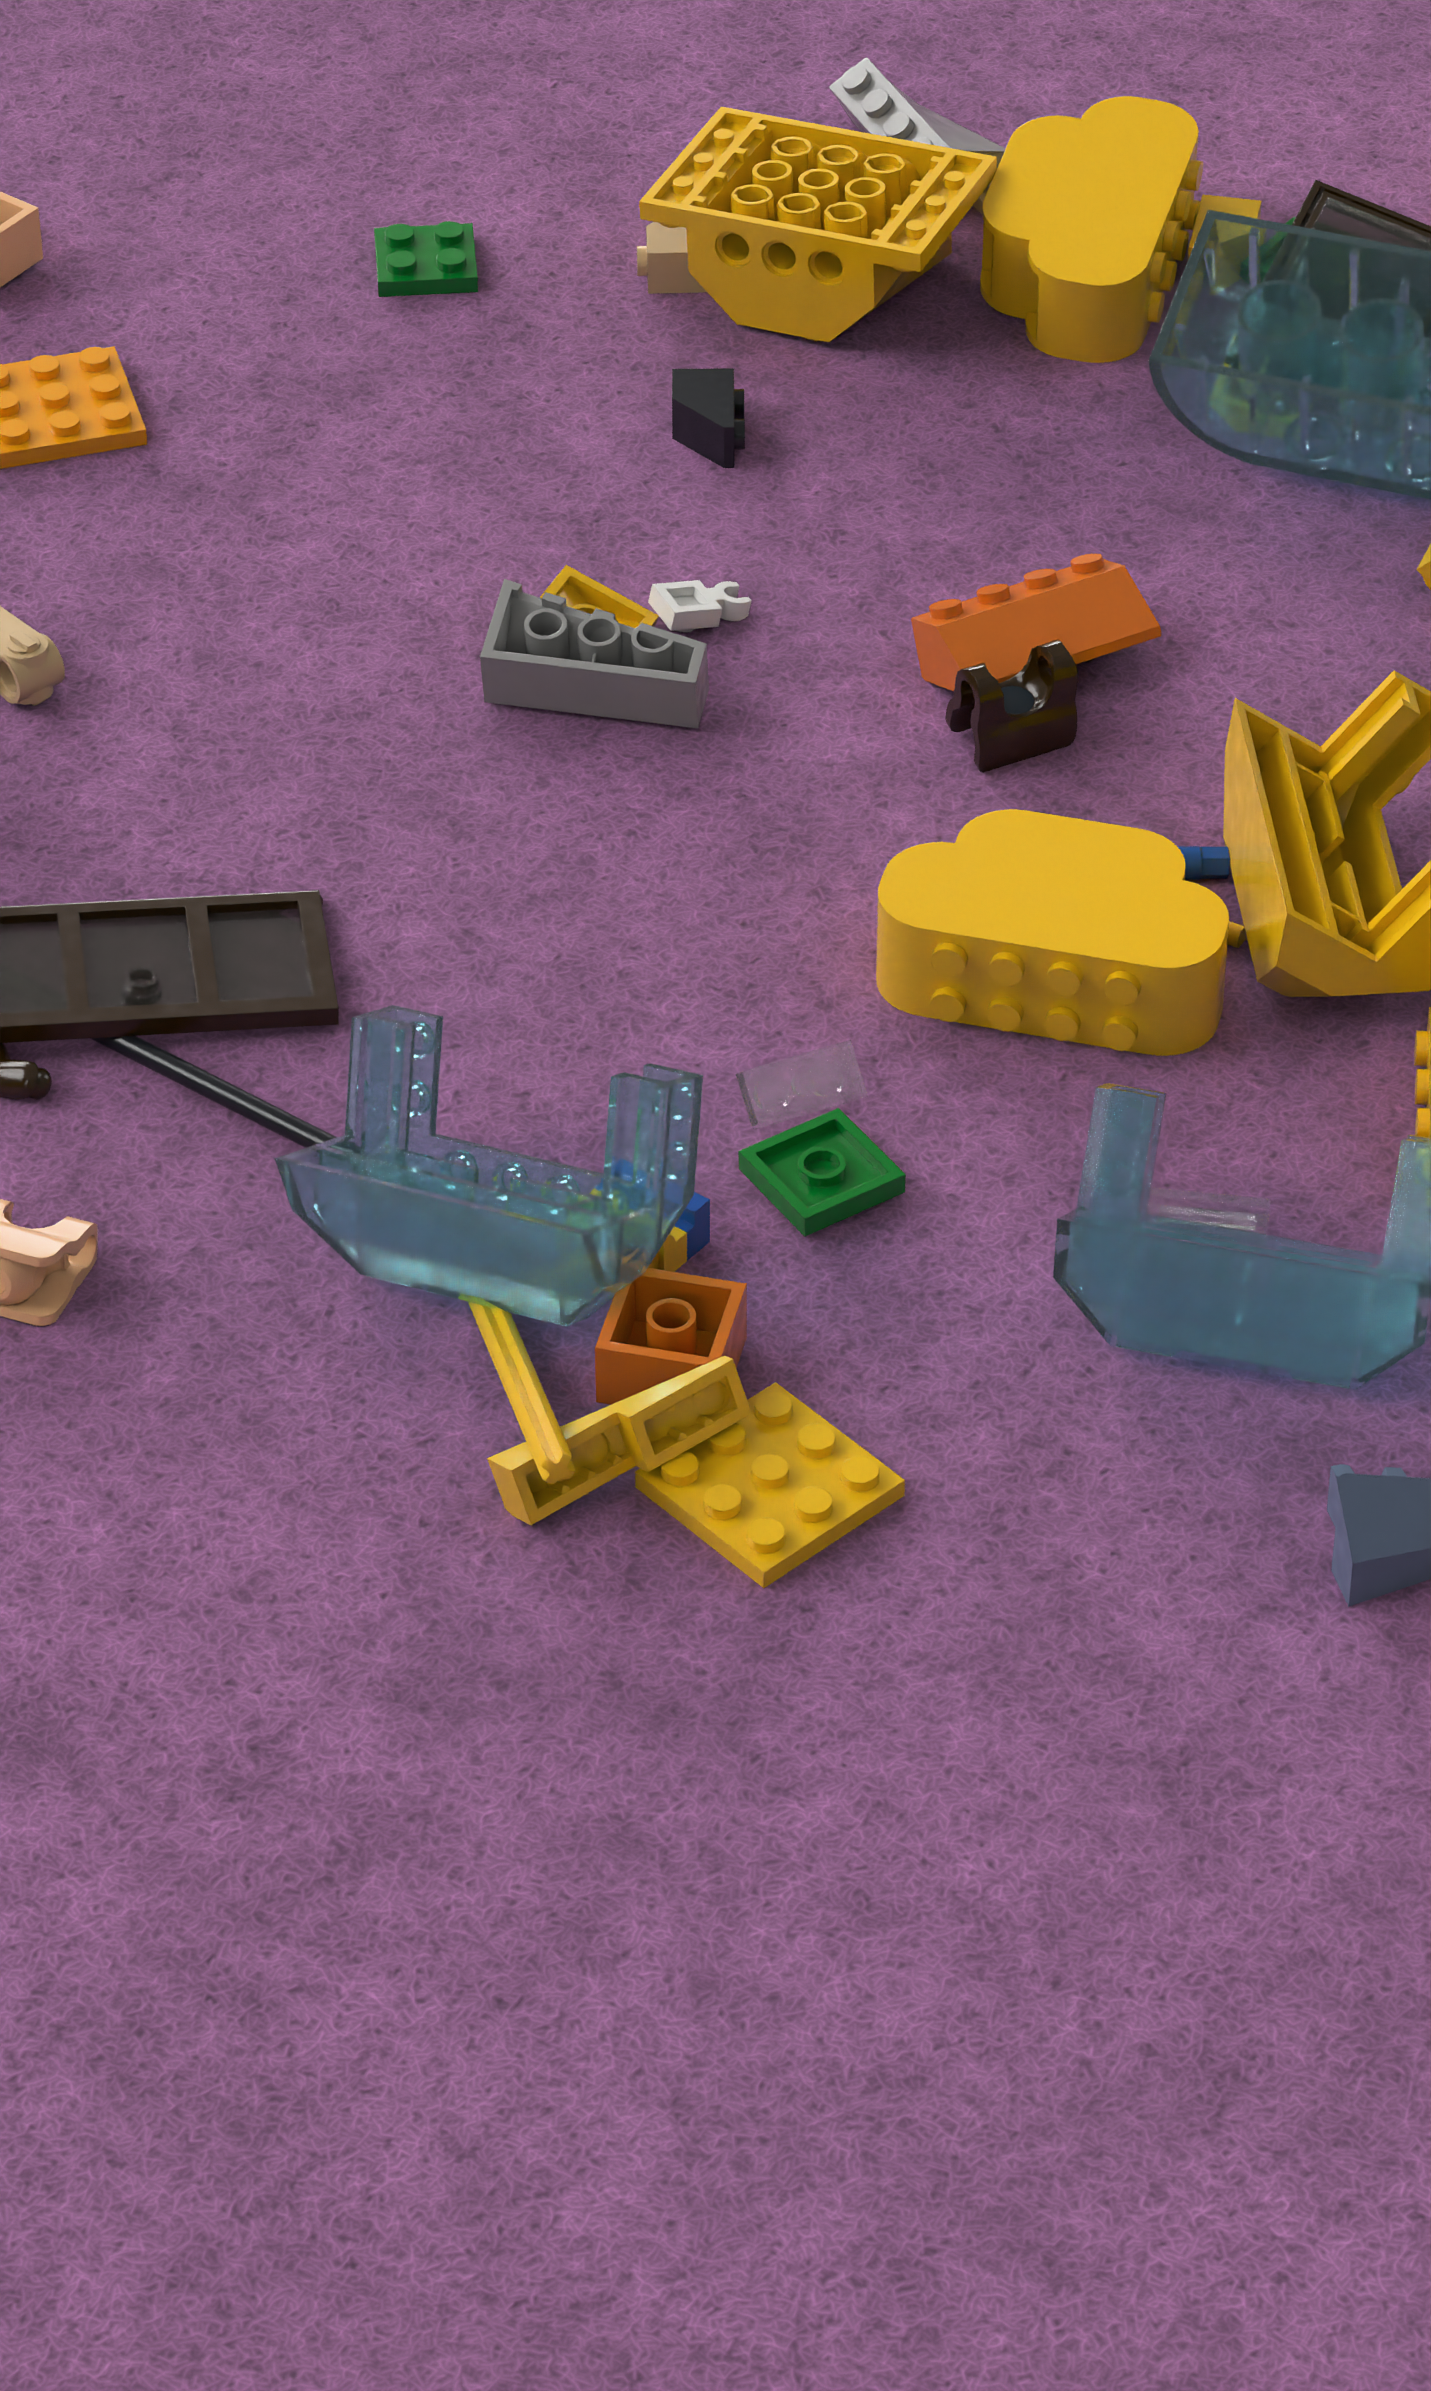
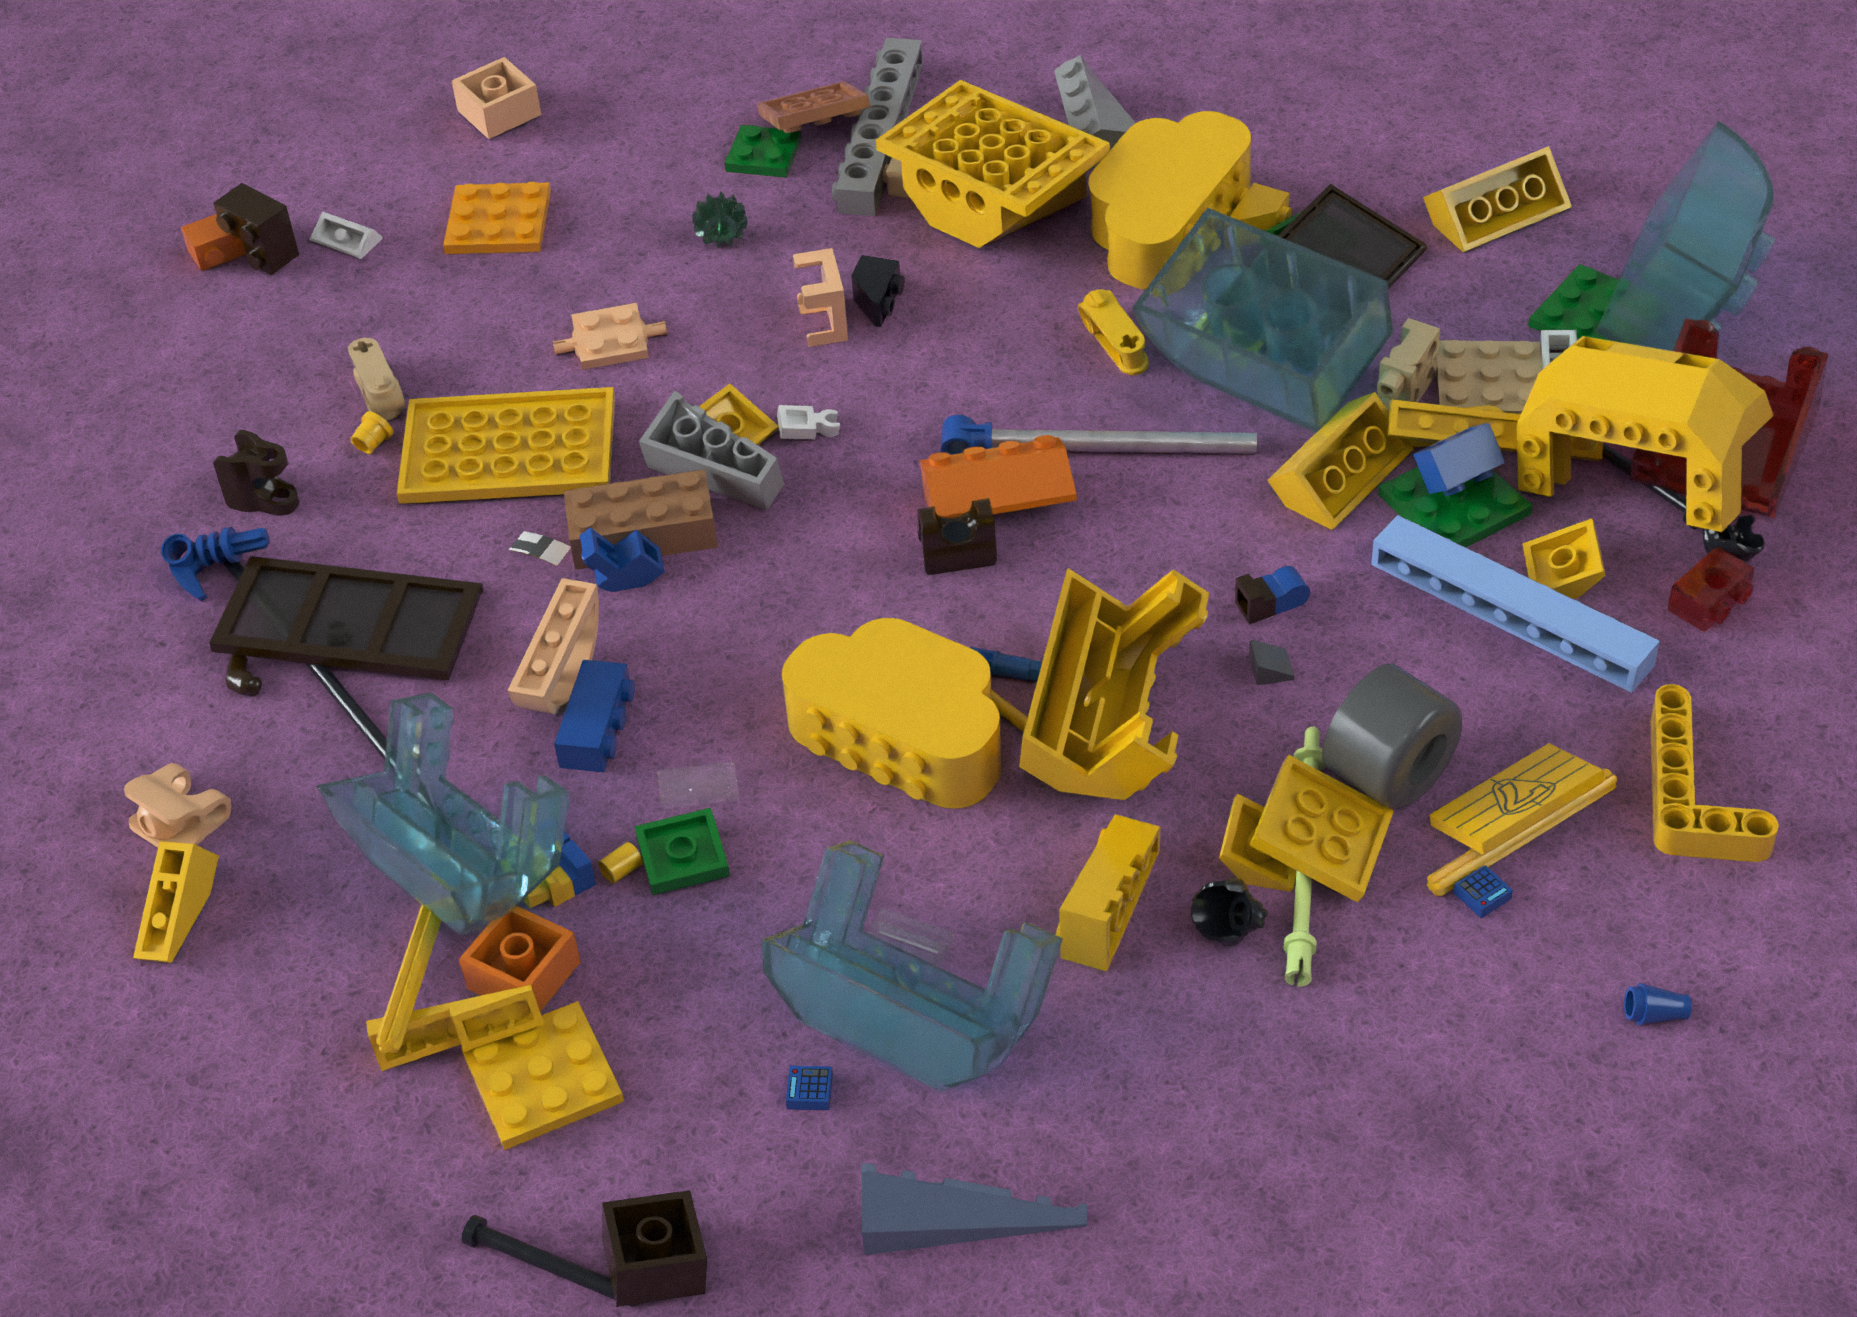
camera: 20 degrees right, 5 degrees up
(30, 719) = (371, 432): none -> yellow piece
(89, 1369) = (175, 898): none -> yellow slope
(254, 704) = (506, 445): none -> yellow plate
(328, 538) = (609, 336): none -> light nougat plate
(377, 831) = (541, 547): none -> sticker
(423, 354) = (719, 219): none -> clear green gear
(482, 182) = (813, 106): none -> nougat plate
(513, 937) = (557, 649): none -> light nougat window
(523, 764) = (666, 509): none -> medium nougat brick
(531, 826) = (621, 566): none -> blue brick
(591, 201) = (890, 98): none -> light grey brick
(596, 1021) = (594, 716): none -> blue brick
(657, 431) = (823, 296): none -> light nougat panel
(738, 1203) = (620, 862): none -> yellow hinge
(913, 1704) = (478, 1232): none -> black bar
(942, 578) = (962, 433): none -> flat silver piece
(1068, 1644) = (653, 1248): none -> dark brown brick
(1094, 416) = (1114, 331): none -> yellow piece
(1165, 1424) = (809, 1087): none -> blue tile

